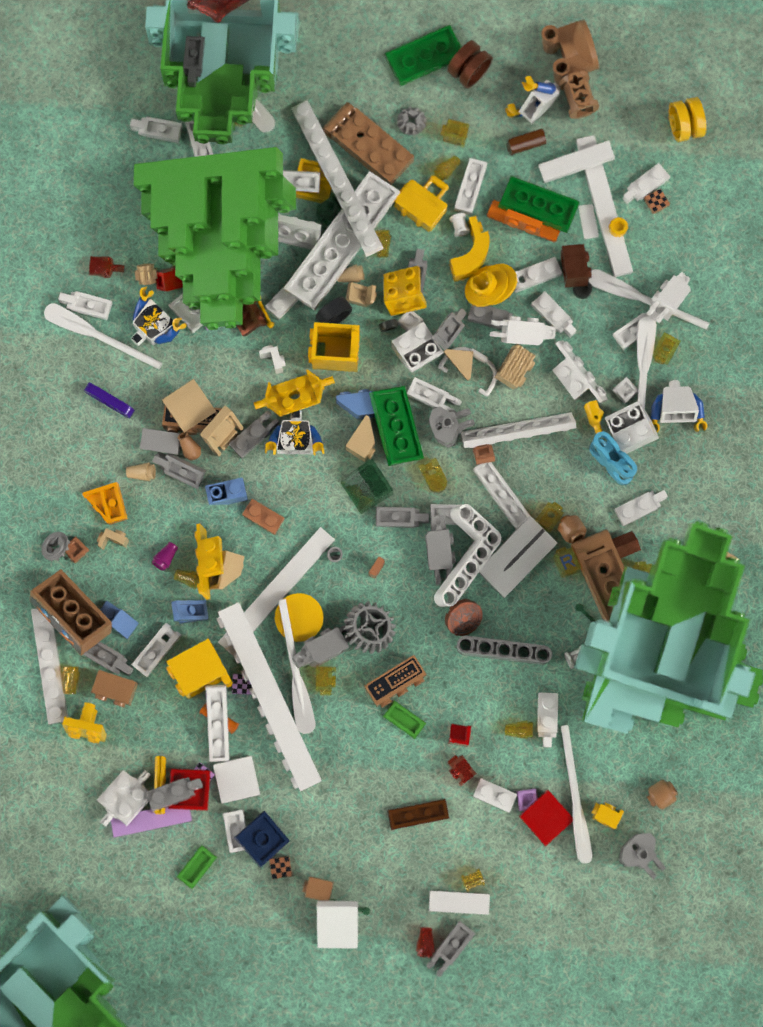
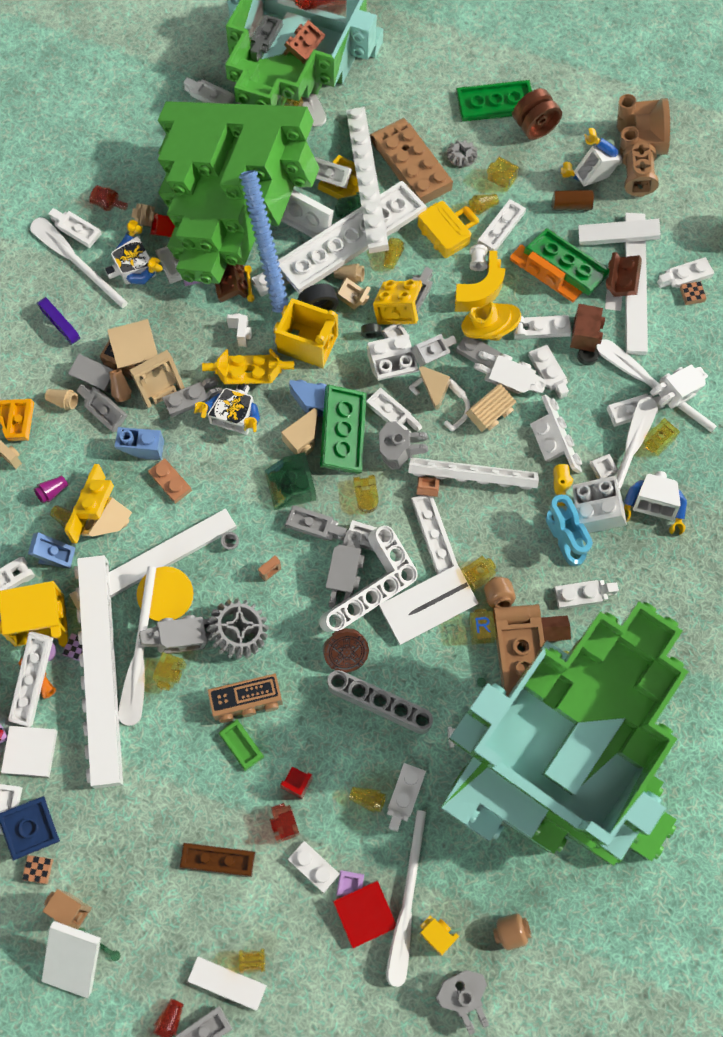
camera: 20 degrees right, 10 degrees down
(232, 54) = (306, 39): none -> copper bracket
(274, 278) = (264, 240): none -> medium blue piece
(592, 204) = (623, 275): none -> copper bracket
(618, 227) = (644, 304): yellow tile -> none

